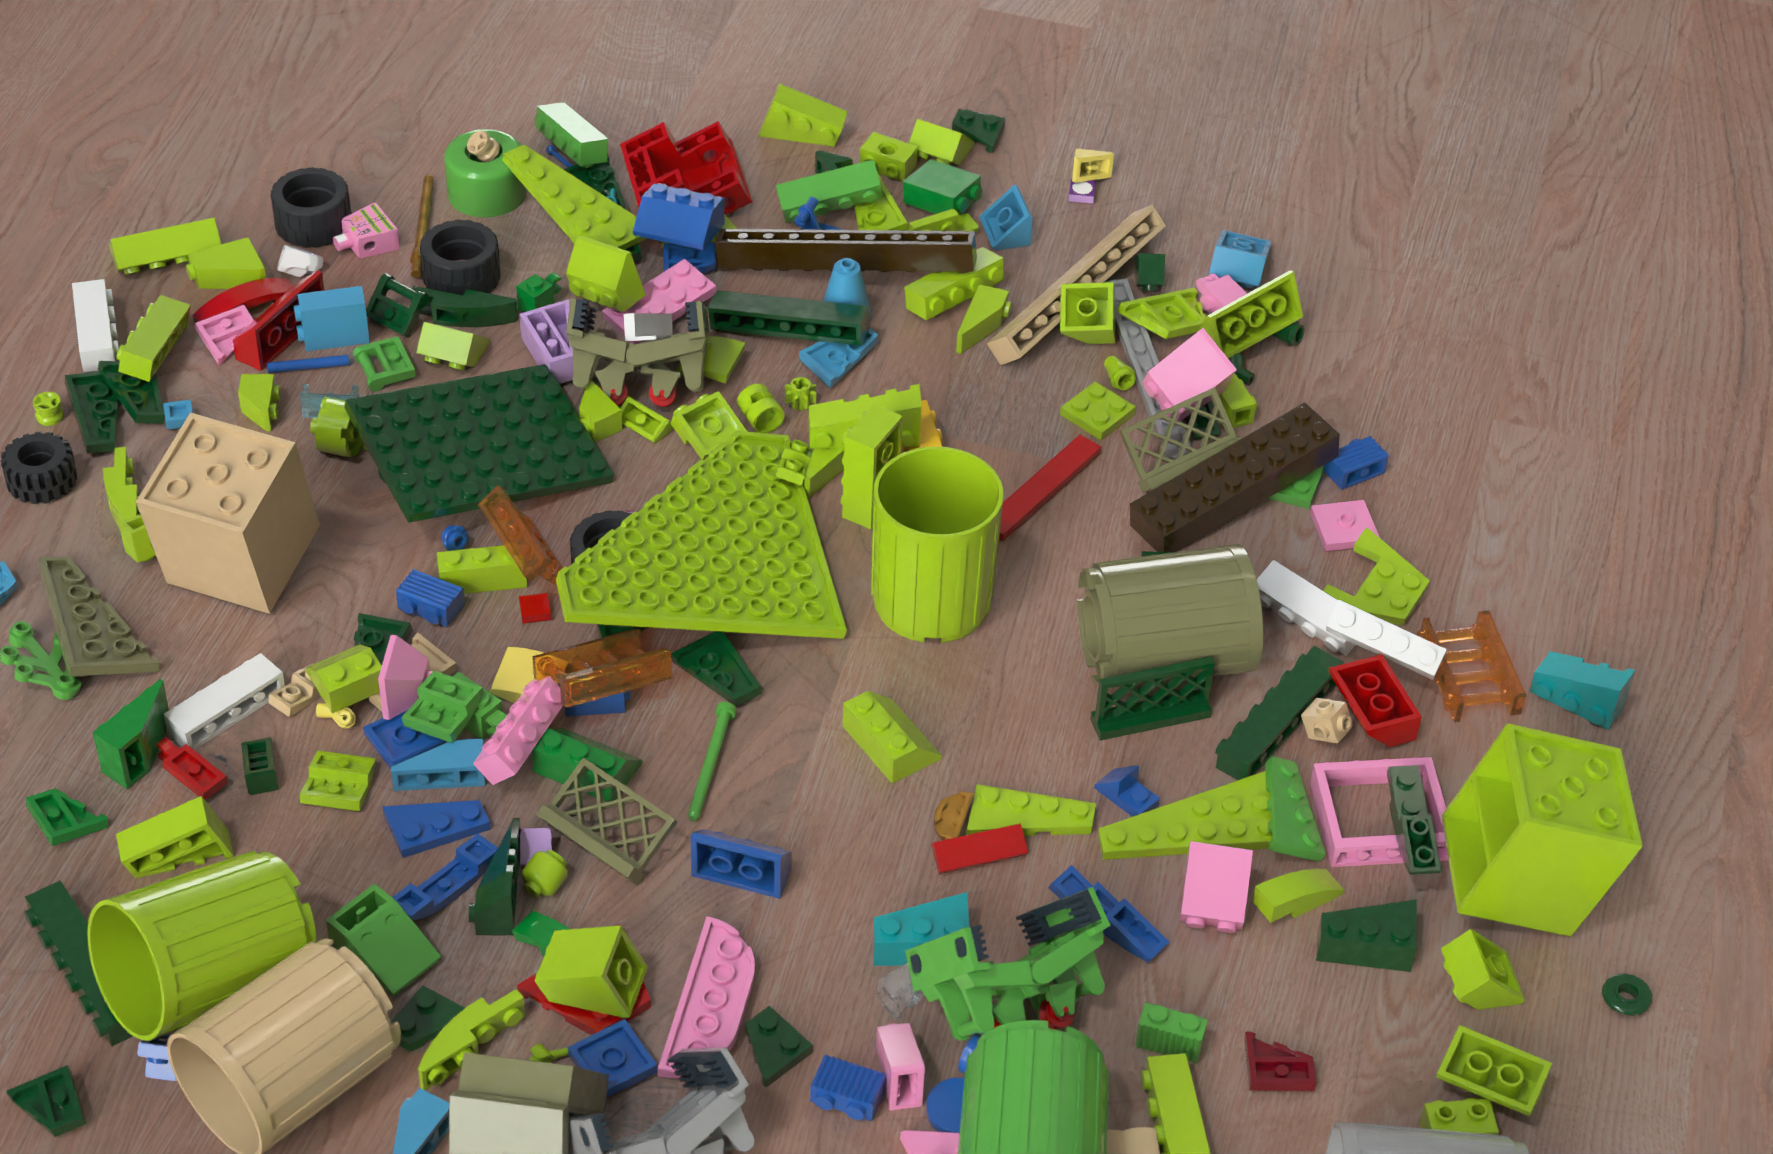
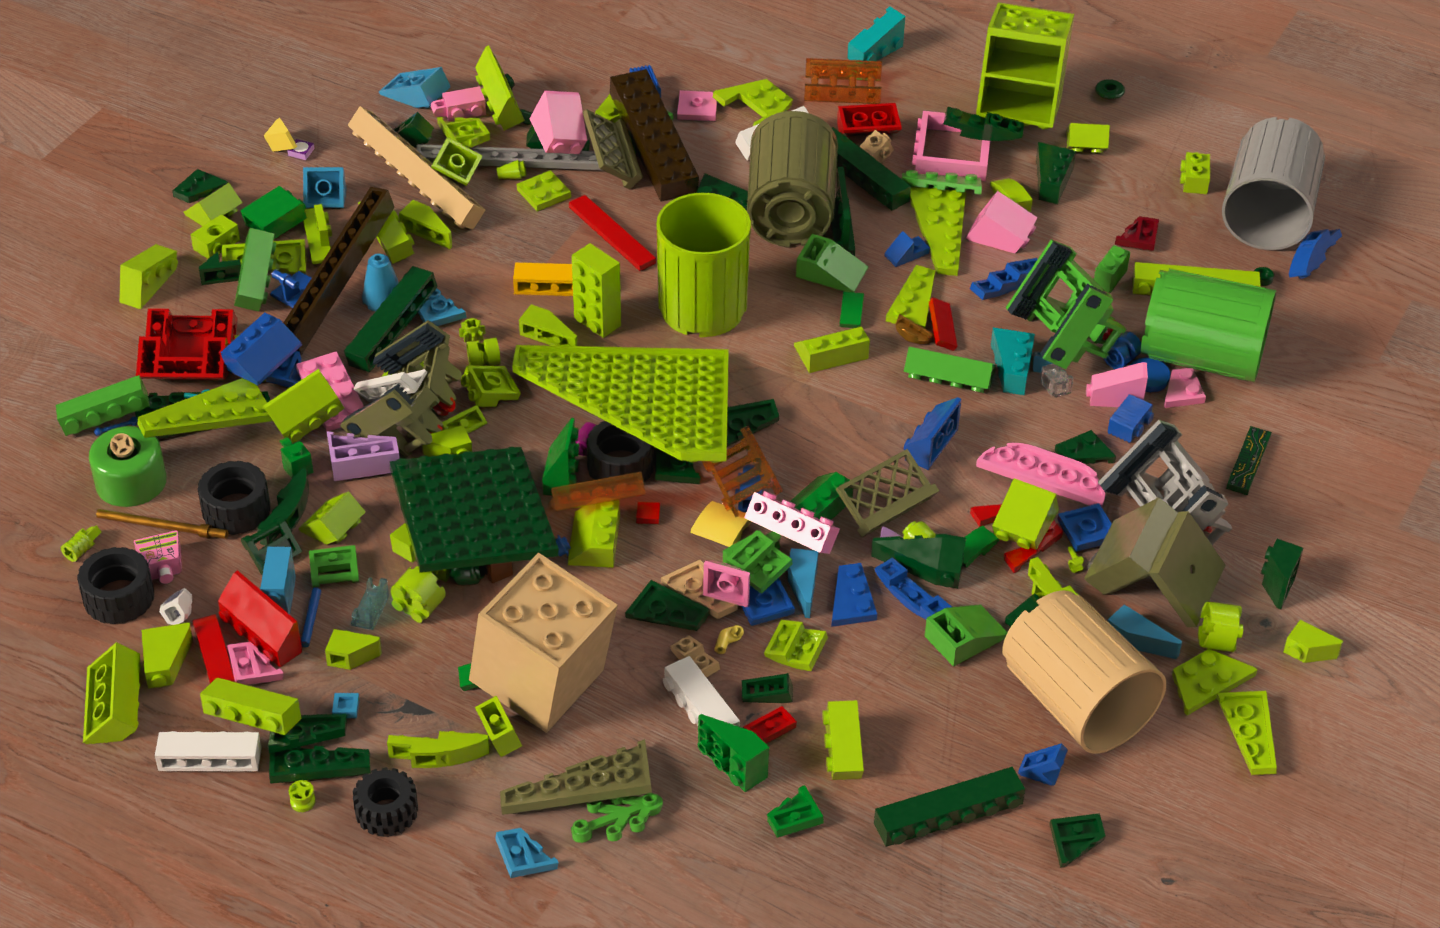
camera: 75 degrees left, 0 degrees up
(195, 940) = (992, 702): lime container -> none
(346, 677) = (705, 615): lime slope -> none
(377, 174) = (80, 543): none -> lime hinge
(430, 598) = (624, 567): blue brick -> none
(573, 498) = (562, 460): none -> green slope
(725, 712) = (787, 425): bright green bar -> none
(794, 461) = (551, 343): lime slope -> none
(832, 419) = (542, 286): lime wedge -> none
(886, 861) = (949, 368): none -> bright green slope
(981, 744) = (851, 309): none -> green slope
(1050, 706) = (829, 265): none -> bright green slope
(1385, 639) = (833, 96): white brick -> none
(1495, 1070) = (1166, 146): lime slope -> none

